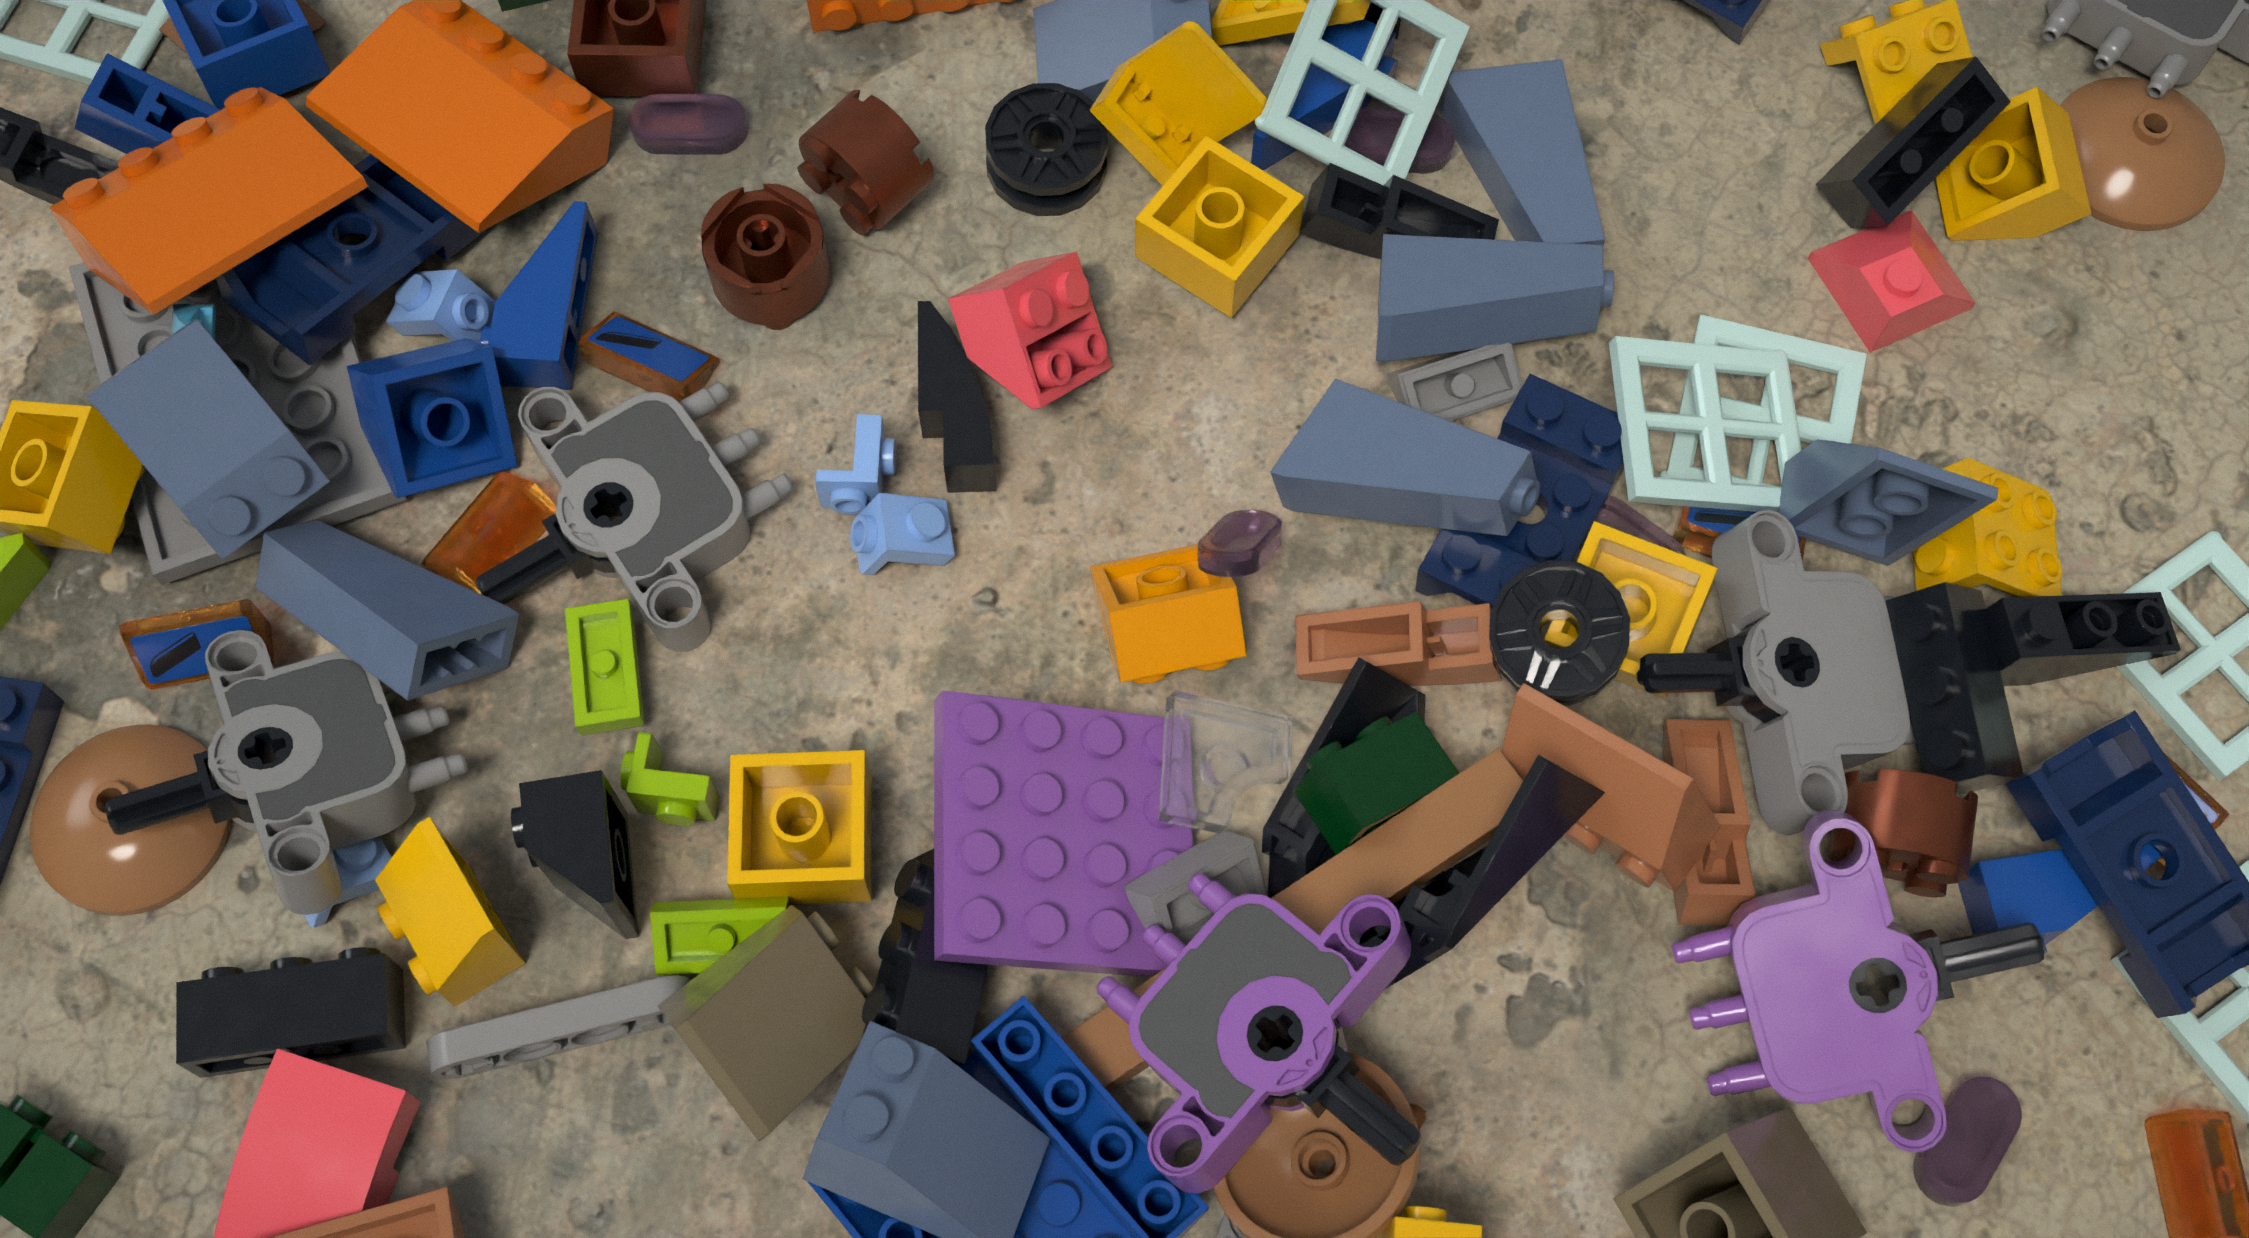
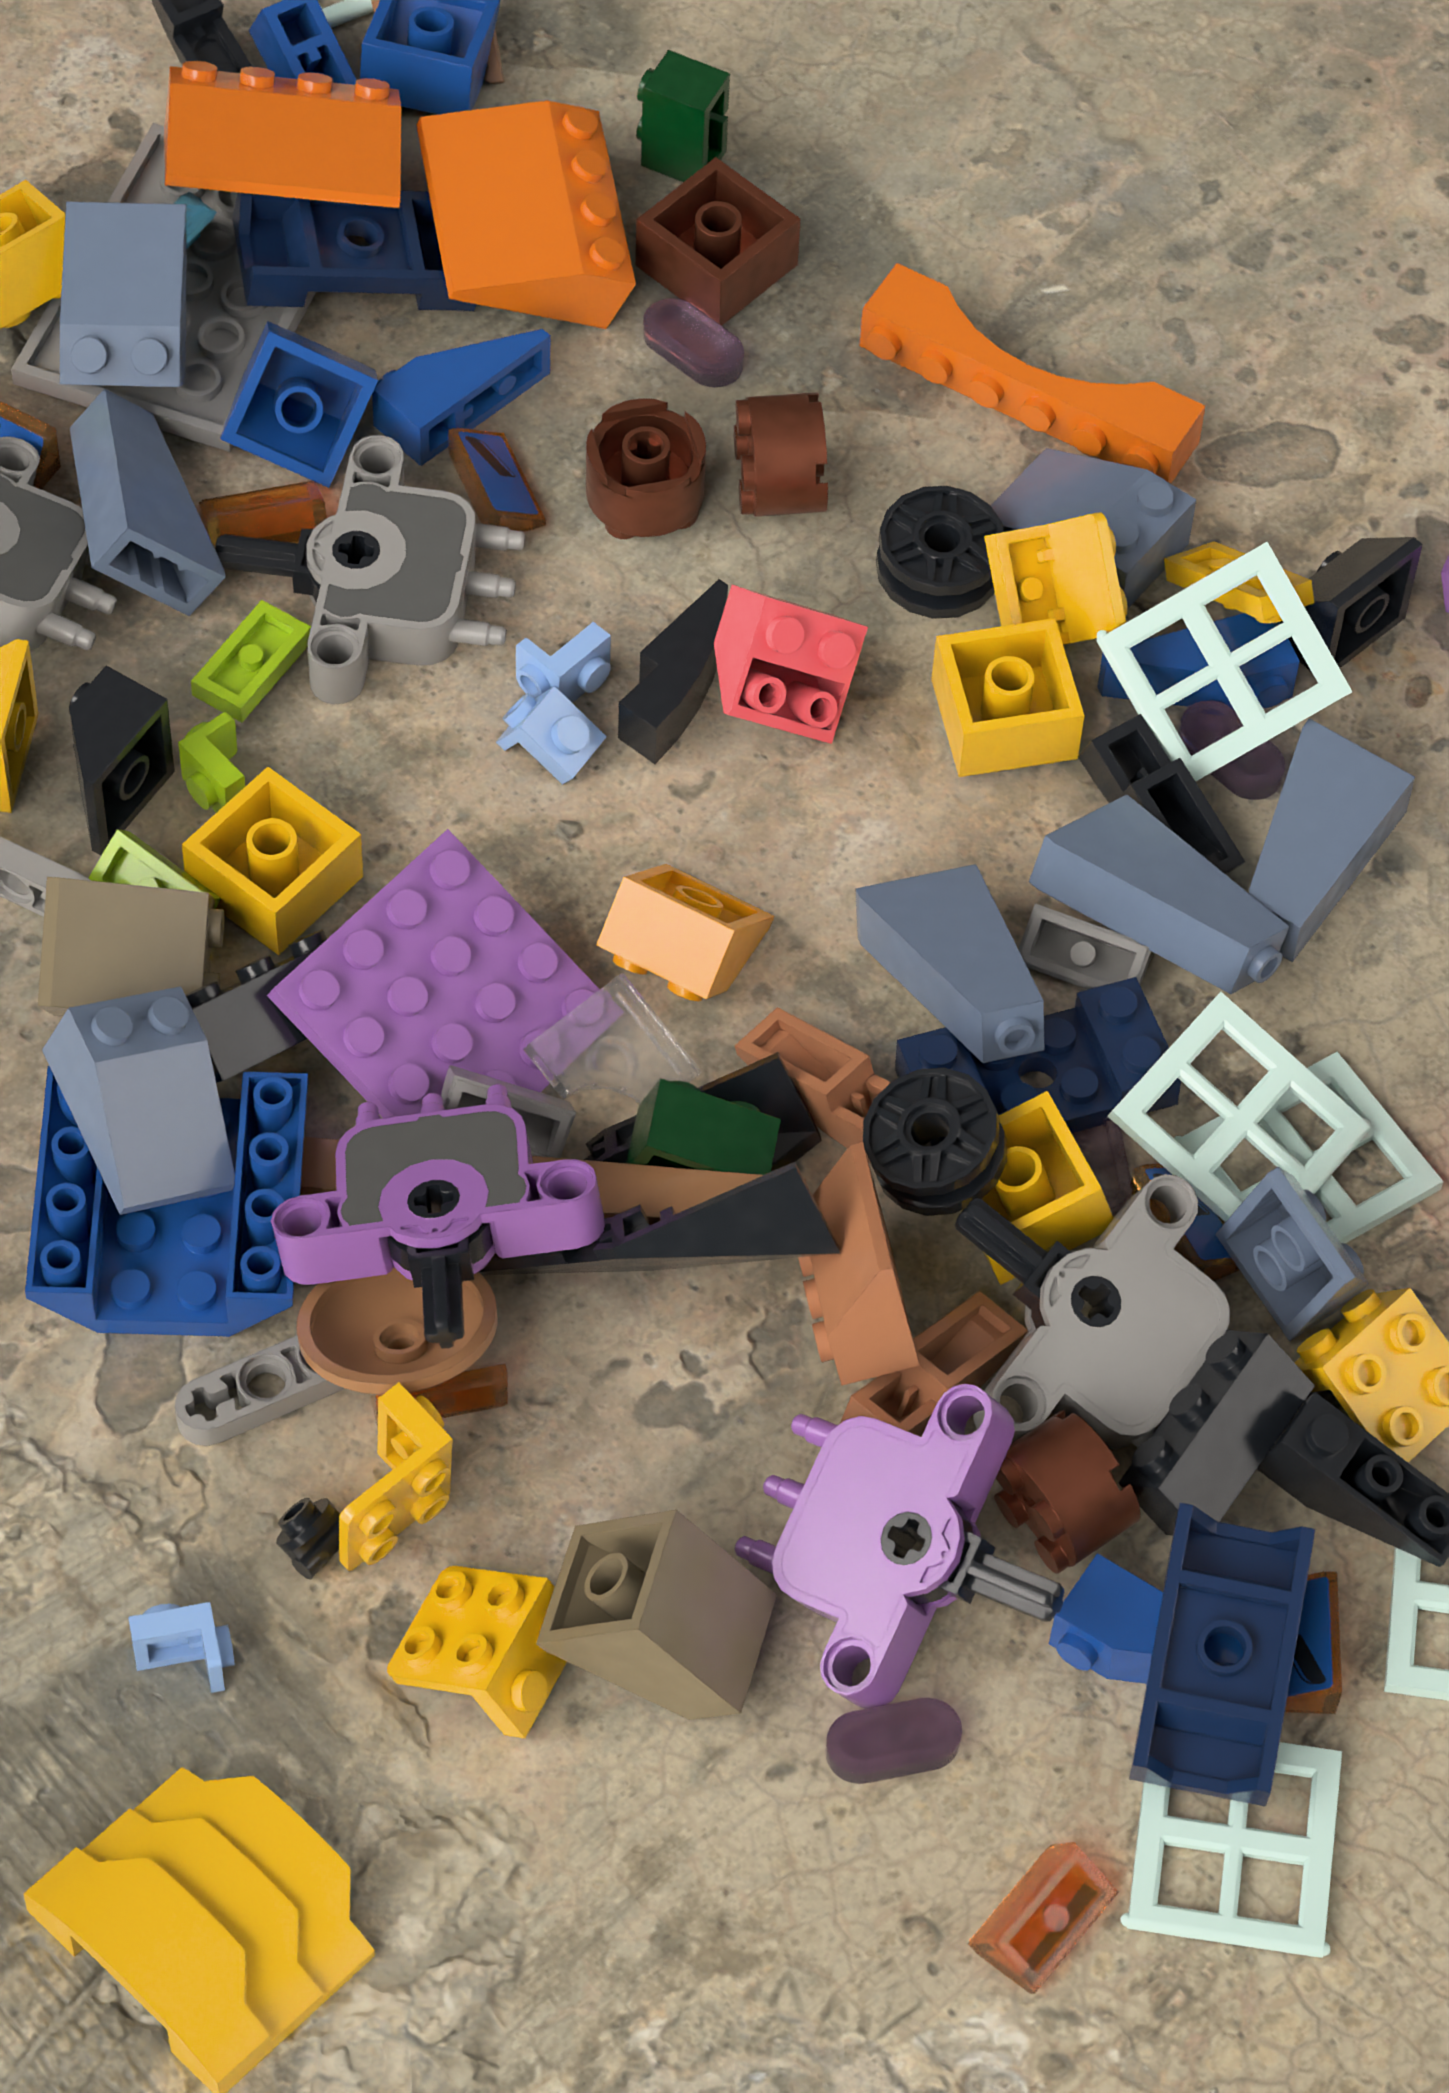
camera: 40 degrees right, 10 degrees down
(441, 304) = (381, 334): light blue bracket -> none
(1239, 543) = (783, 920): tile -> none

